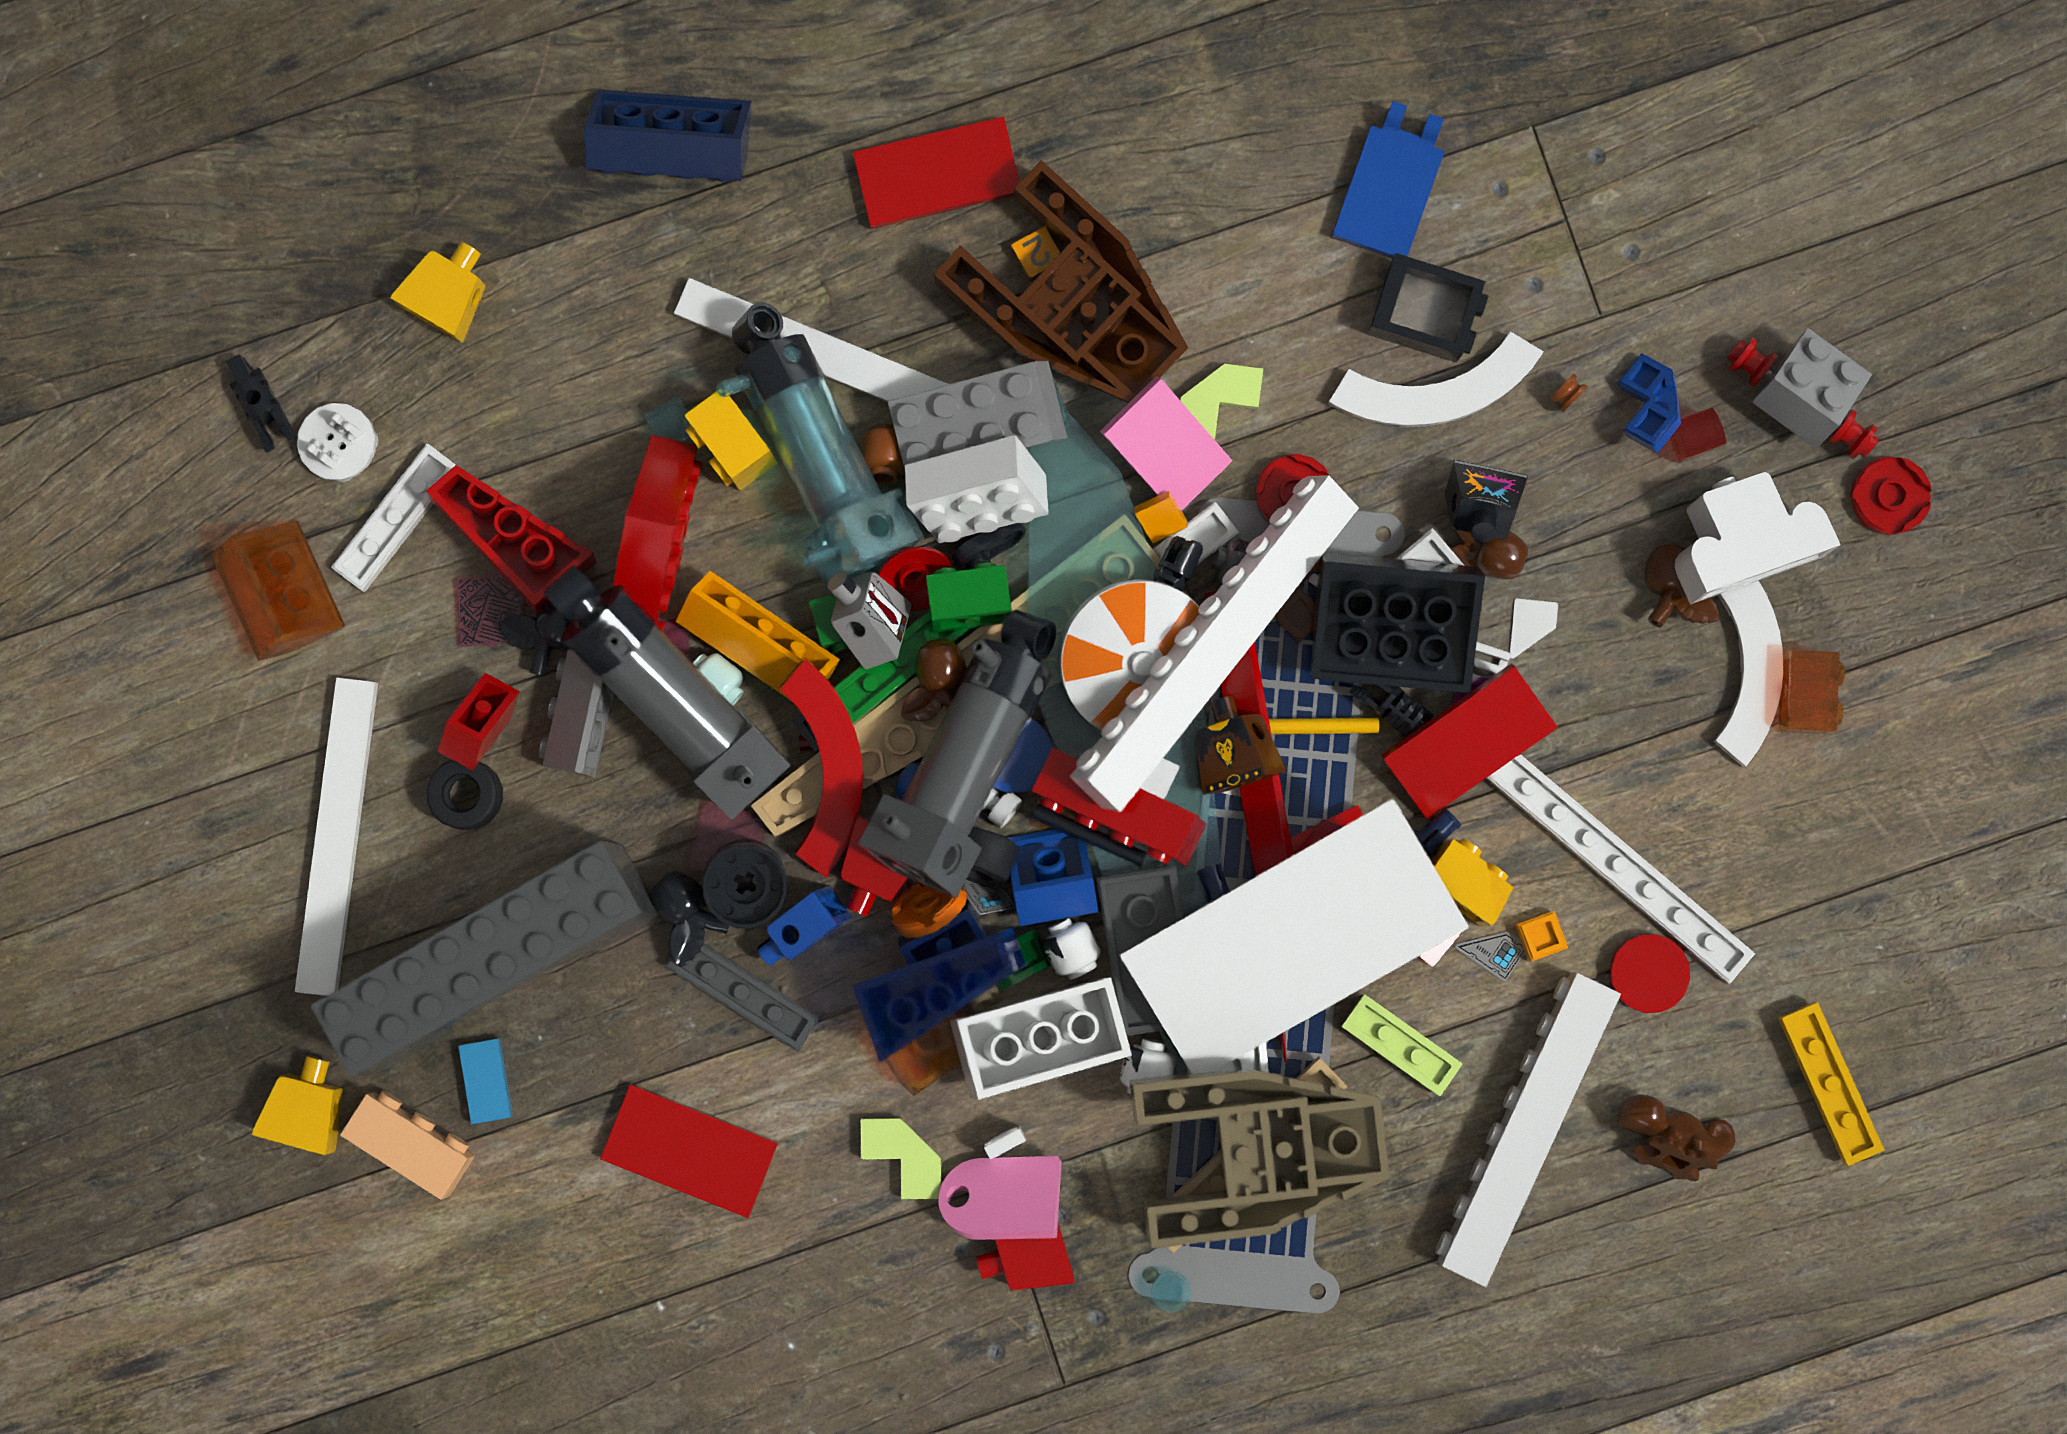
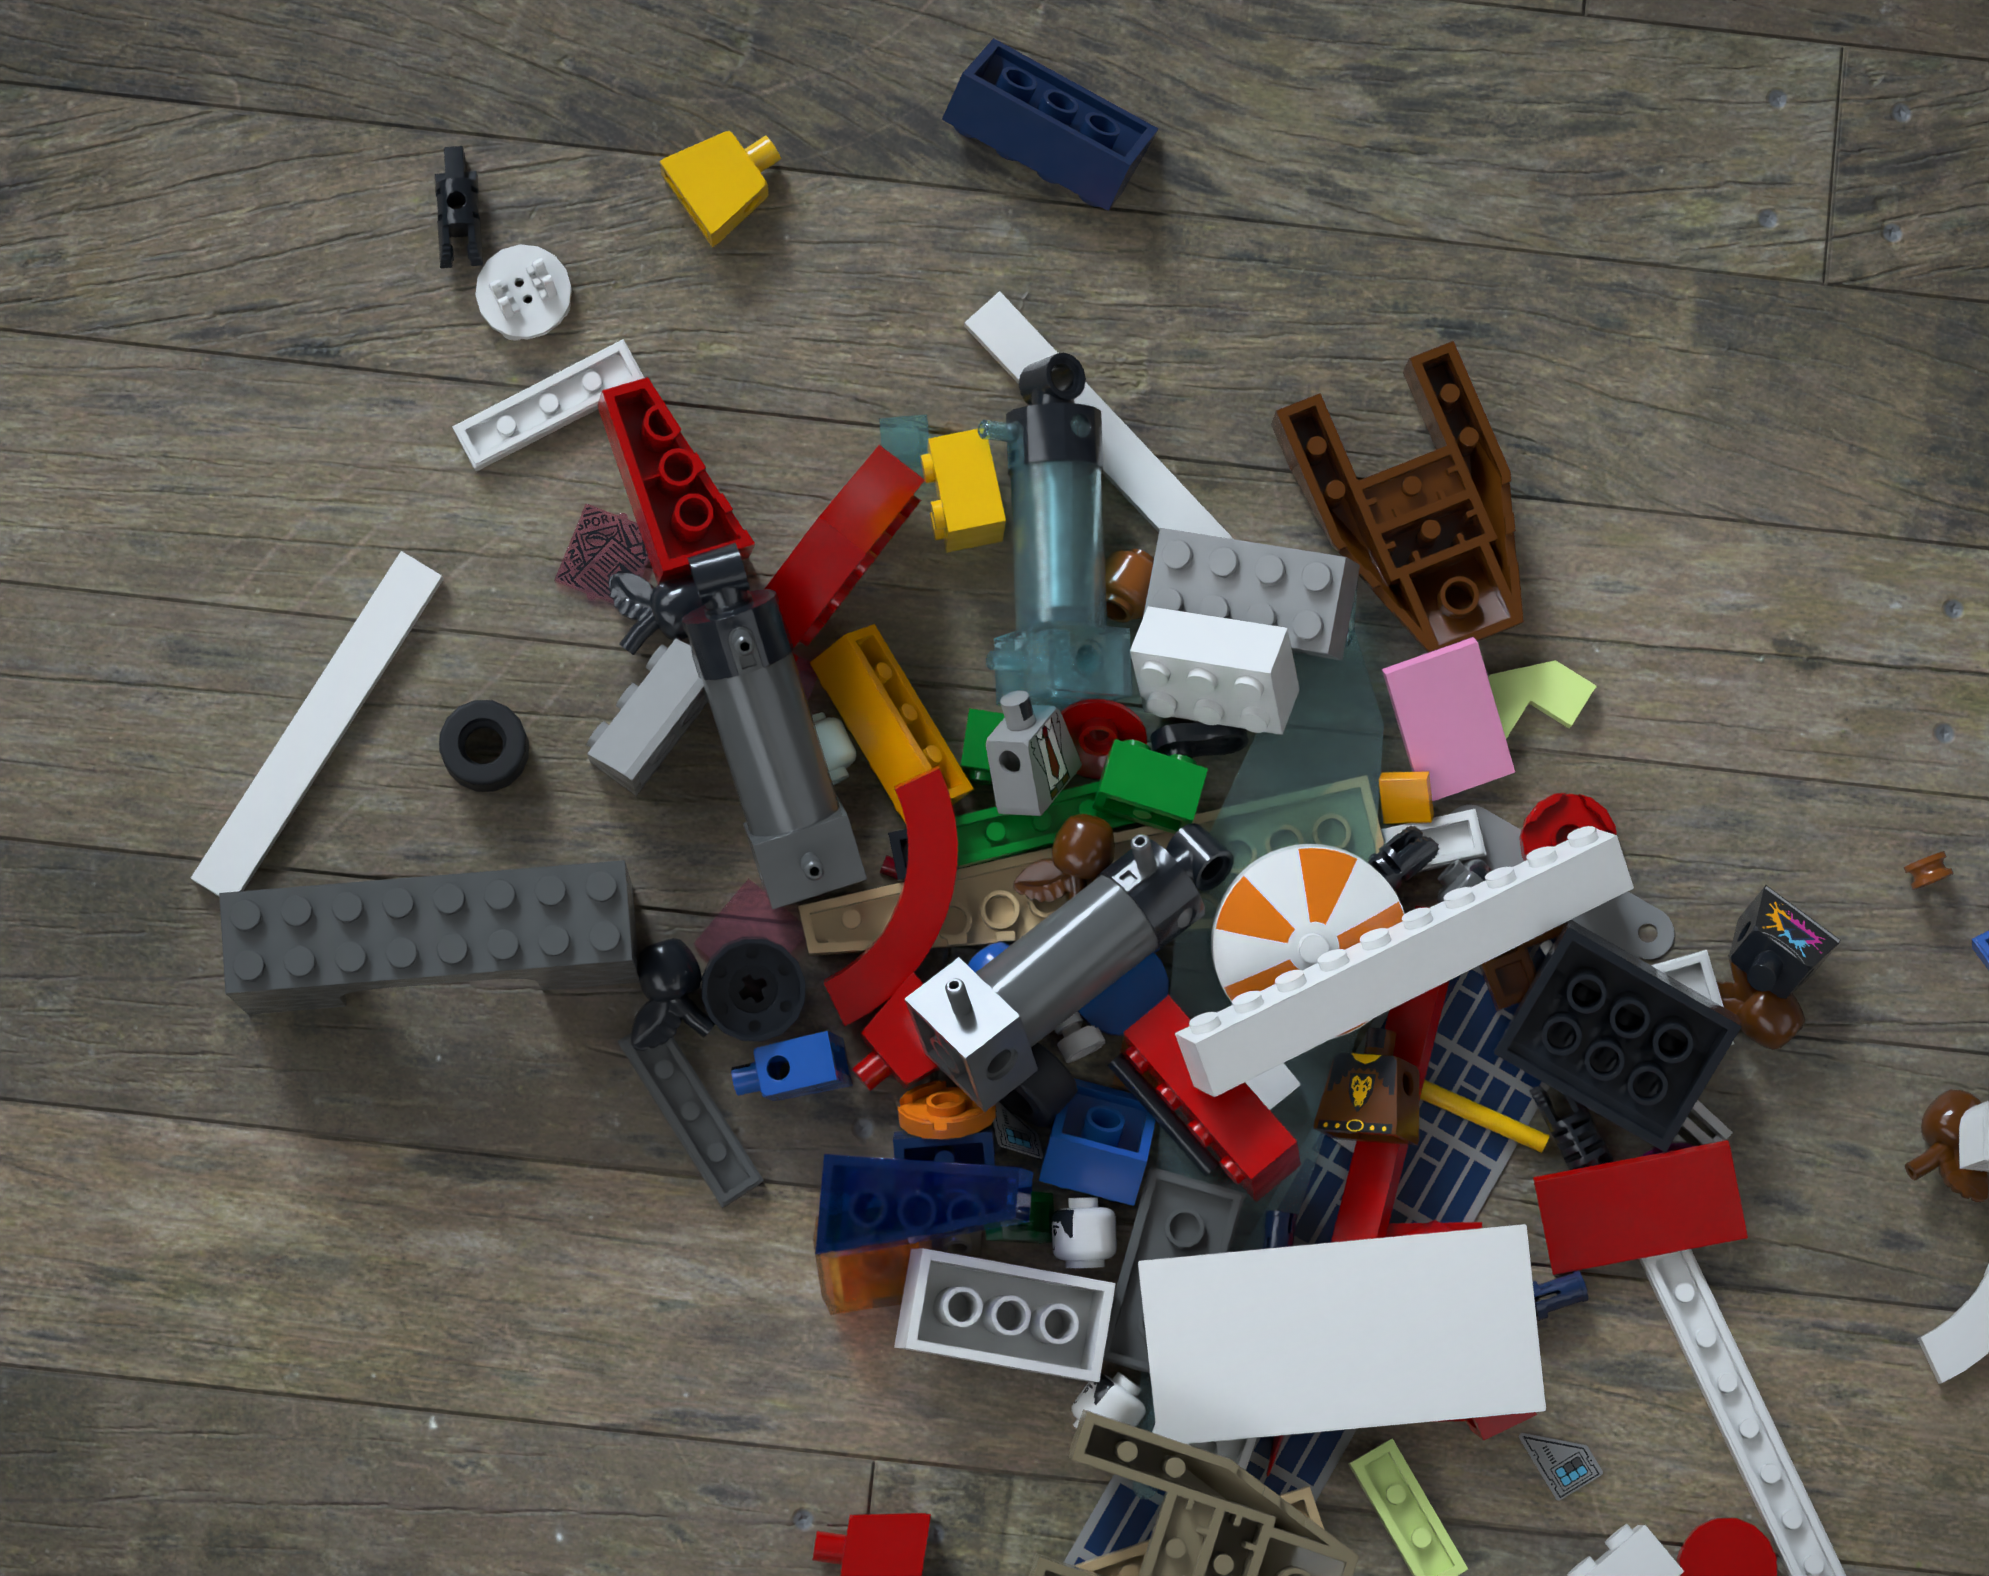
camera: 10 degrees right, 5 degrees down
(277, 589) = (381, 423): clear orange slope -> none
(303, 1110) = (138, 1013): yellow torso -> none
(408, 1143) = (239, 1106): light nougat brick -> none
(478, 721) = (539, 671): red brick -> none
(485, 1081) = (356, 1077): dark azure tile -> none
(689, 1151) = (548, 1262): red tile -> none
(896, 1140) = (787, 1358): yellowish green tile -> none
(937, 172) = (1329, 302): red tile -> none
(1004, 1142) = (909, 1416): white tile -> none
(1006, 1198) = (881, 1479): bright pink tile -> none
(1035, 252) = (1399, 440): light orange tile -> none
(1390, 186) = (1831, 550): blue tile -> none
(1431, 309) = (1815, 707): window -> none
(1440, 401) = (1777, 813): white tile -> none
(1473, 885) = (1571, 1372): yellow slope -> none
(1531, 623) = (1770, 1110): white sticker -> none
(1541, 936) = (1623, 1467): light orange tile -> none

